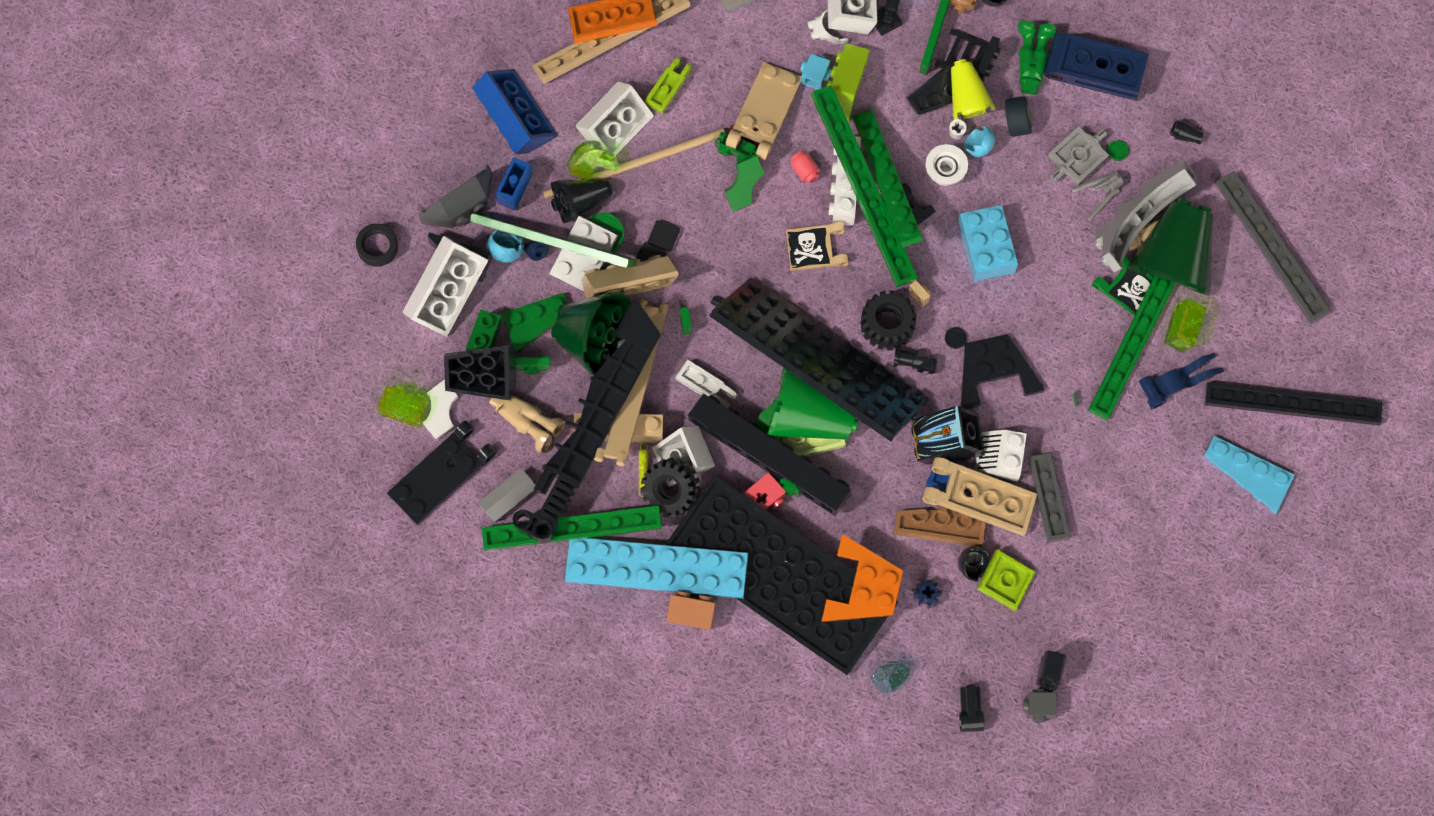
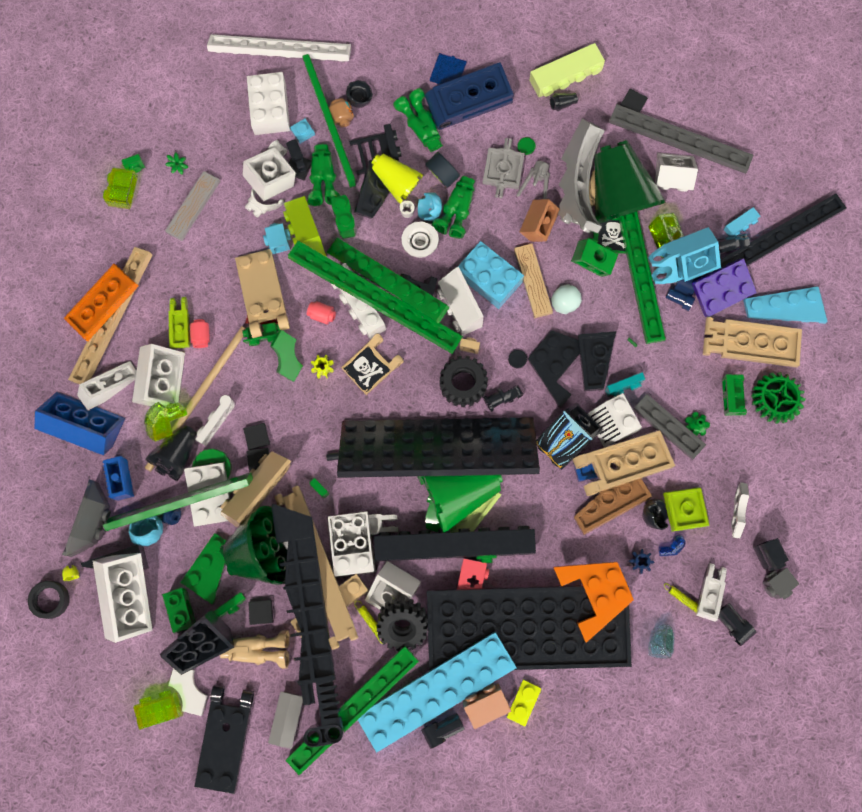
camera: 30 degrees left, 5 degrees up
(411, 233) = (68, 573): none -> neon yellow hinge
(552, 390) = (260, 612): none -> black piece
(562, 94) = (106, 385): none -> white slope
(634, 604) = (440, 731): none -> black piece
(637, 194) = (215, 419): none -> white plate
(677, 388) = (351, 544): none -> white slope
(680, 108) = (199, 333): none -> coral brick
(726, 636) = (524, 703): none -> neon yellow plate
(769, 222) = (327, 364): none -> neon yellow gear
(892, 95) = (343, 216): none -> green brick
(905, 38) = (322, 170): none -> green piece
(939, 248) = (462, 304): none -> white slope
(942, 657) = (683, 598): none -> neon yellow piece
(969, 606) = (675, 548): none -> clear blue arm
(969, 667) = (711, 594): none -> white hinge
(1008, 158) = (458, 204): none -> green piece
(1025, 278) = (533, 280): none -> tan tile
(1027, 386) = (595, 356): none -> black wing
(1043, 316) = (566, 299): none -> light aqua hair
(1045, 433) = (633, 382): none -> teal plate
(1053, 615) = (740, 503): none -> white tile
(1073, 226) = (539, 220): none -> nougat brick
(1075, 518) = (697, 424): none -> green plant
(1088, 289) = (584, 257): none -> green brick
(1098, 26) = (447, 69): none -> clear blue piece
(1133, 514) = (733, 395): none -> green hinge
(1177, 552) = (785, 400): none -> green gear
(1182, 355) = (687, 257): none -> medium azure brick
(1189, 480) = (753, 342): none -> tan hinge
(1201, 411) = (724, 287): none -> plate
(1211, 106) = (567, 70): none -> yellowish green brick
(1241, 273) = (675, 171): none -> white slope
(1241, 376) = (731, 243): none -> black bar
(1255, 181) = (634, 101): none -> black piece
(1268, 366) = (742, 223): none -> medium azure piece

